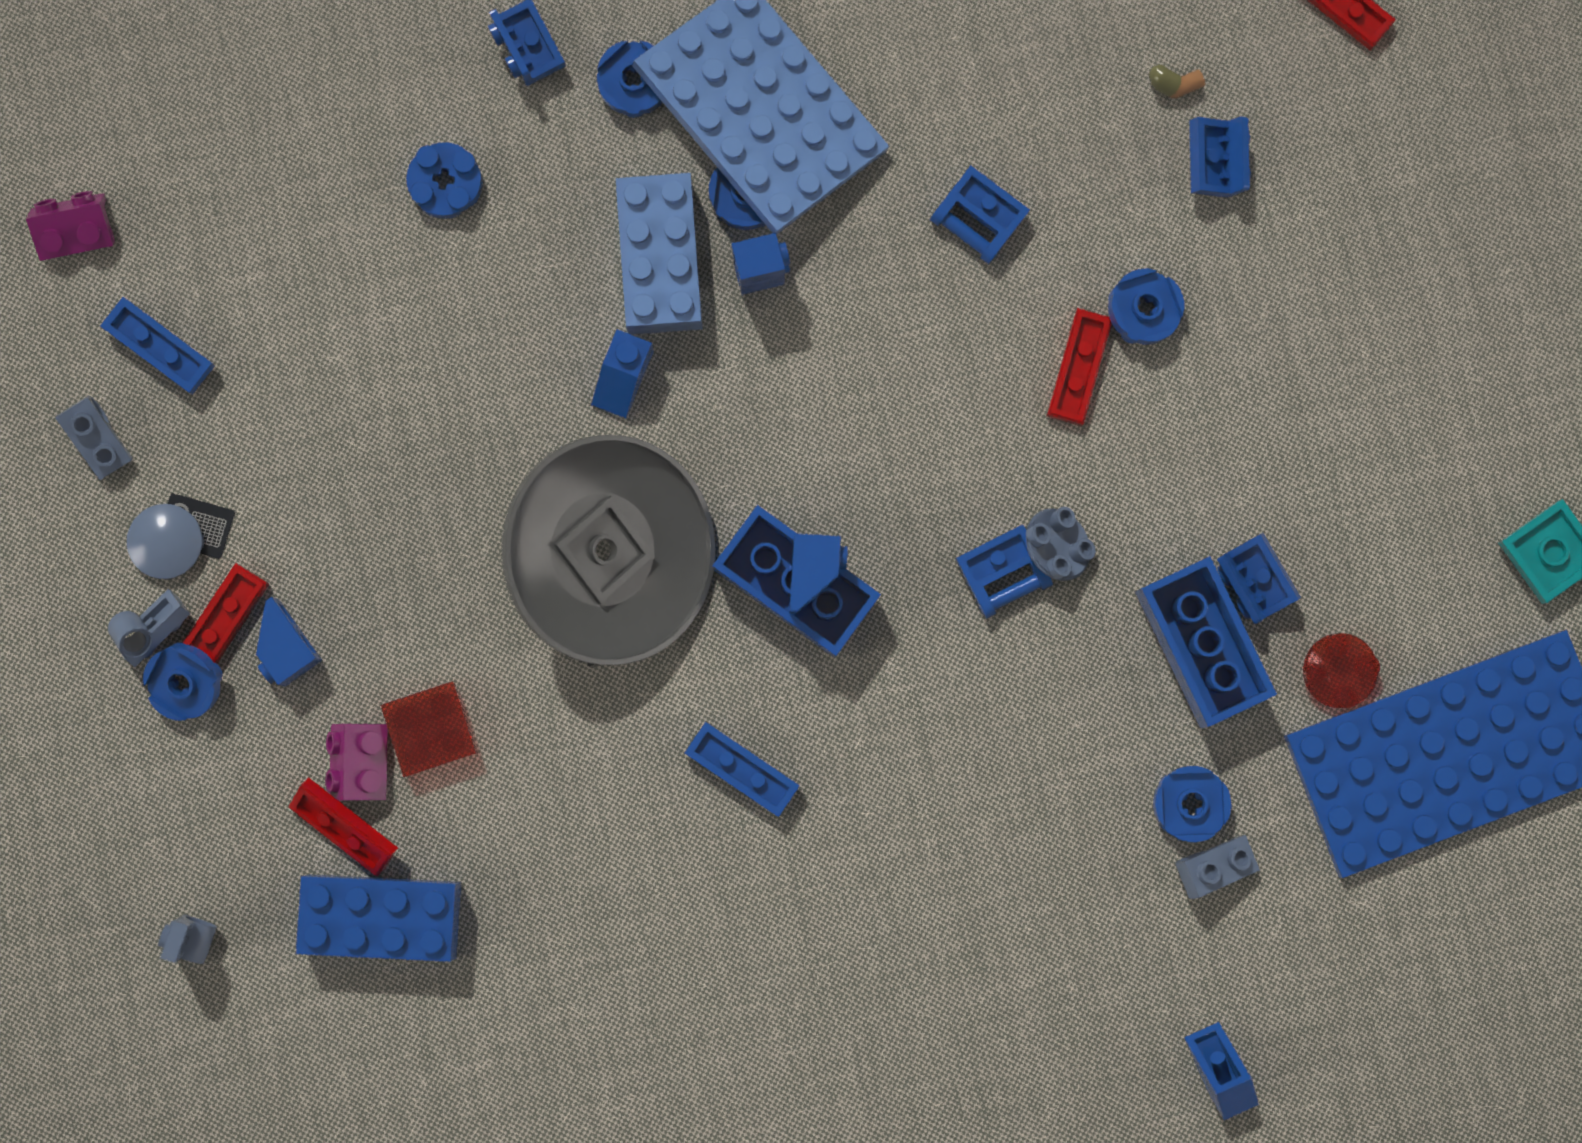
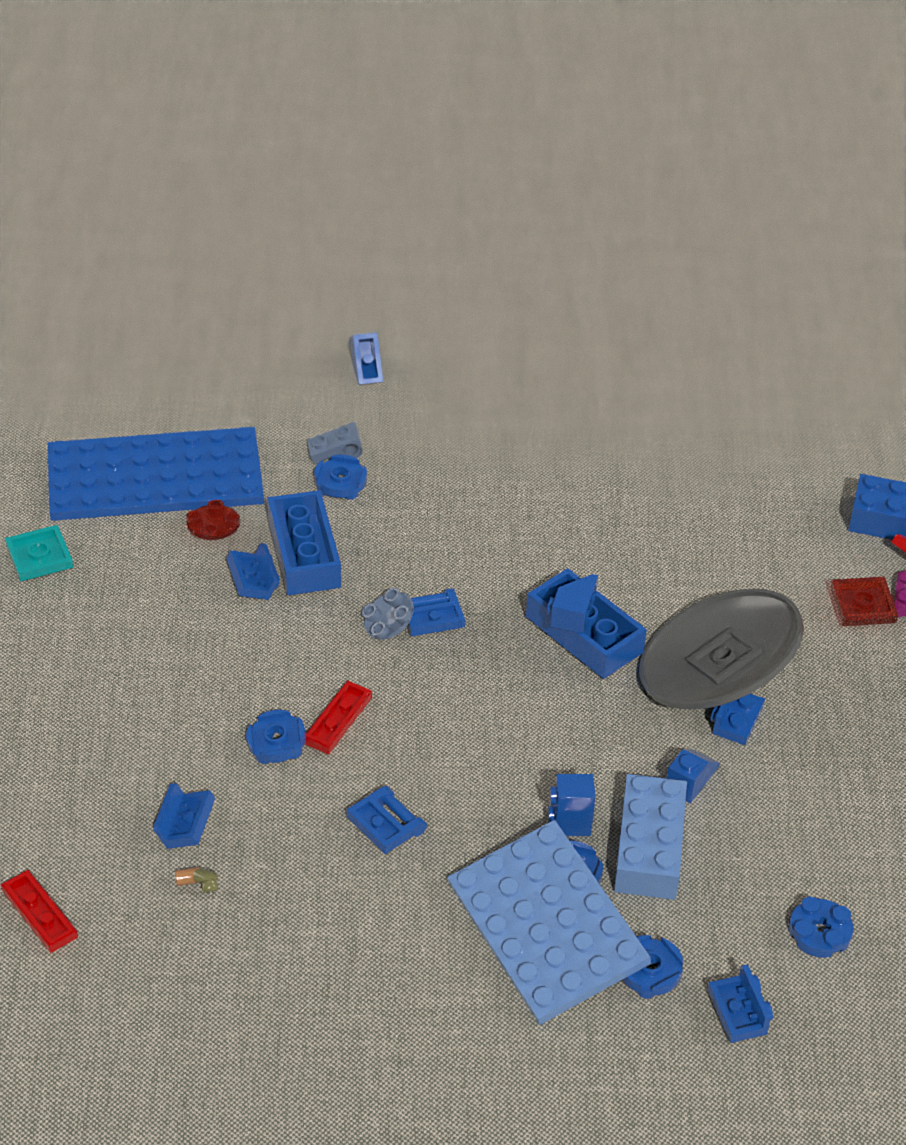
camera: 165 degrees left, 40 degrees down
(742, 769) = (644, 544): blue plate -> none

